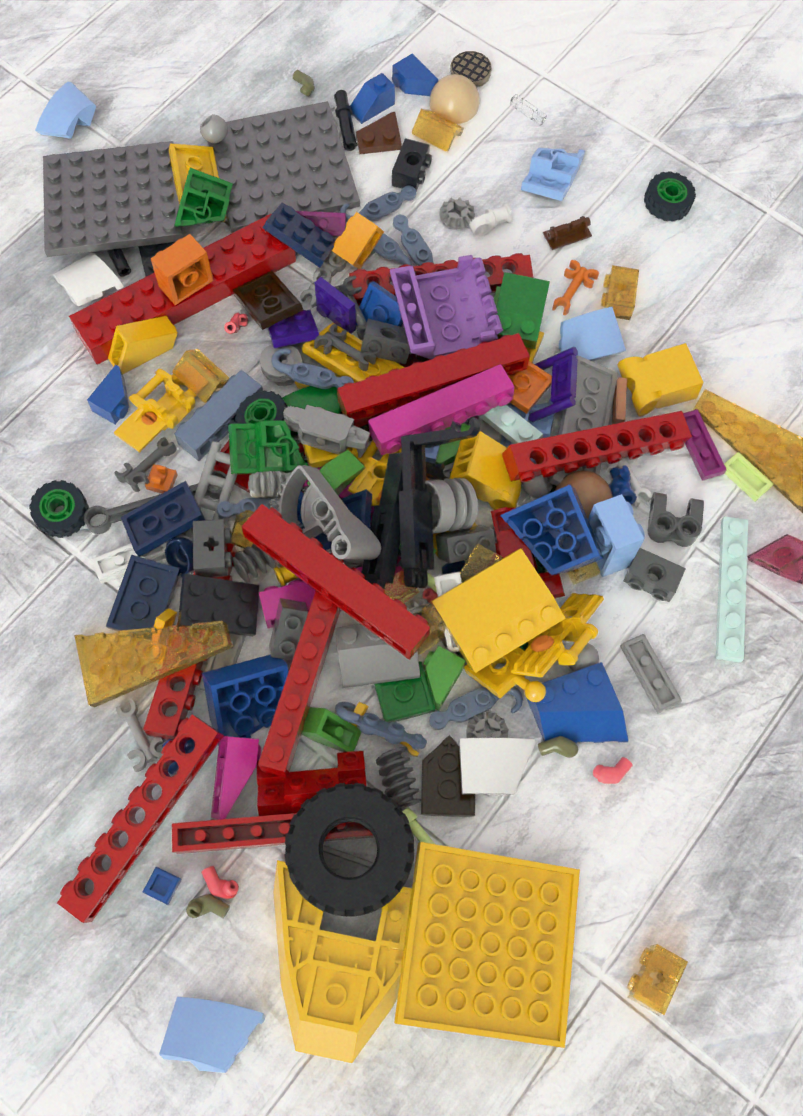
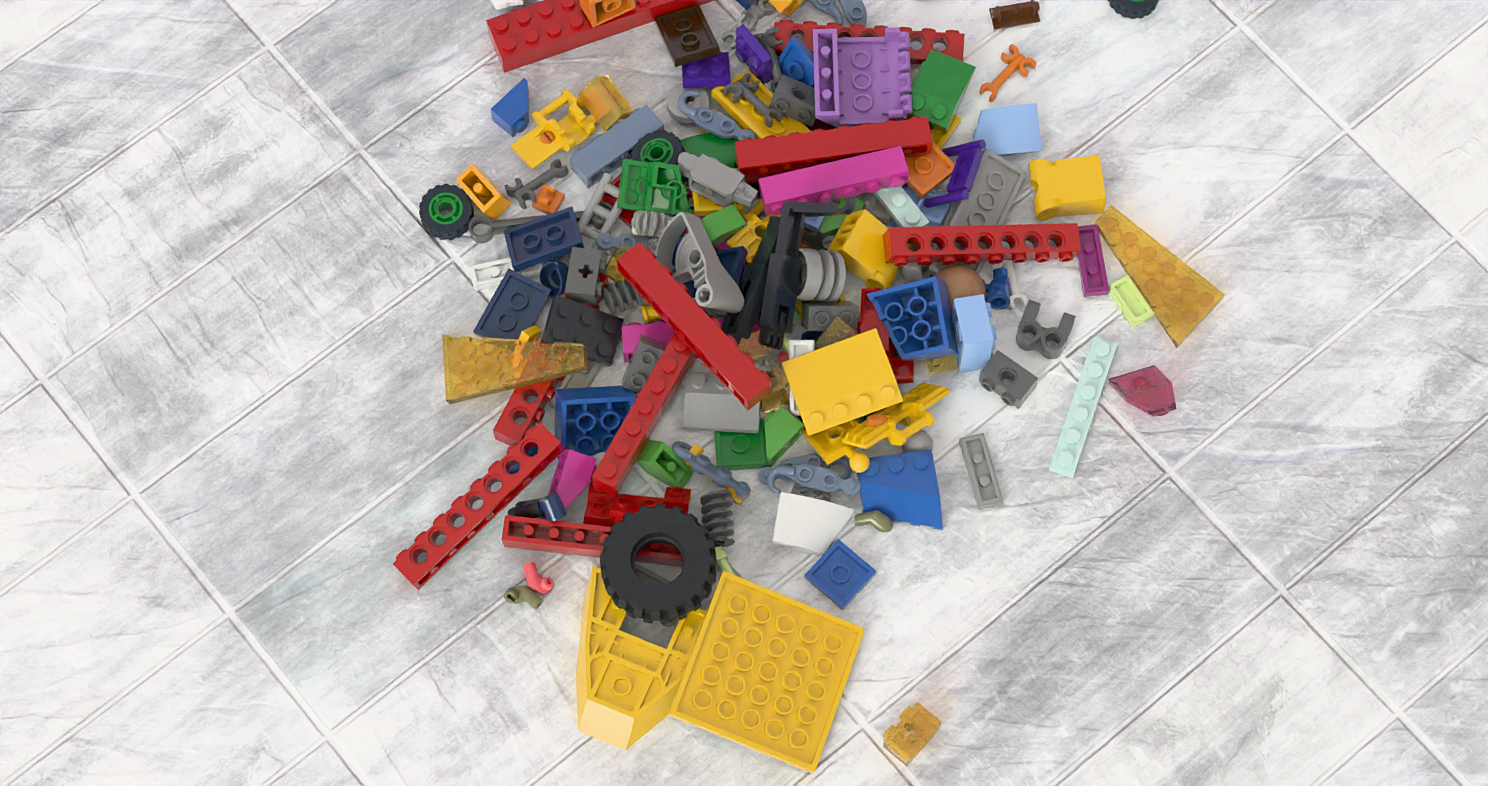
camera: 15 degrees right, 0 degrees up
(93, 482) = (483, 191): none -> light orange brick
(141, 342) = (553, 58): yellow slope -> none
(148, 751) = (491, 453): light grey bar -> none
(162, 885) = (485, 571): blue tile -> none
(208, 1033) = (506, 697): light blue slope -> none
(217, 804) = (549, 506): none -> piece
(235, 322) = (652, 51): coral arm -> none
(442, 783) = (756, 533): dark brown tile -> none
(489, 715) = (814, 478): none -> sand blue piece
(538, 813) = (840, 574): none -> blue plate
(612, 775) = (919, 555): coral arm -> none
(619, 401) = (1020, 201): nougat tile -> none
(621, 291) = (1059, 78): clear yellow brick -> none

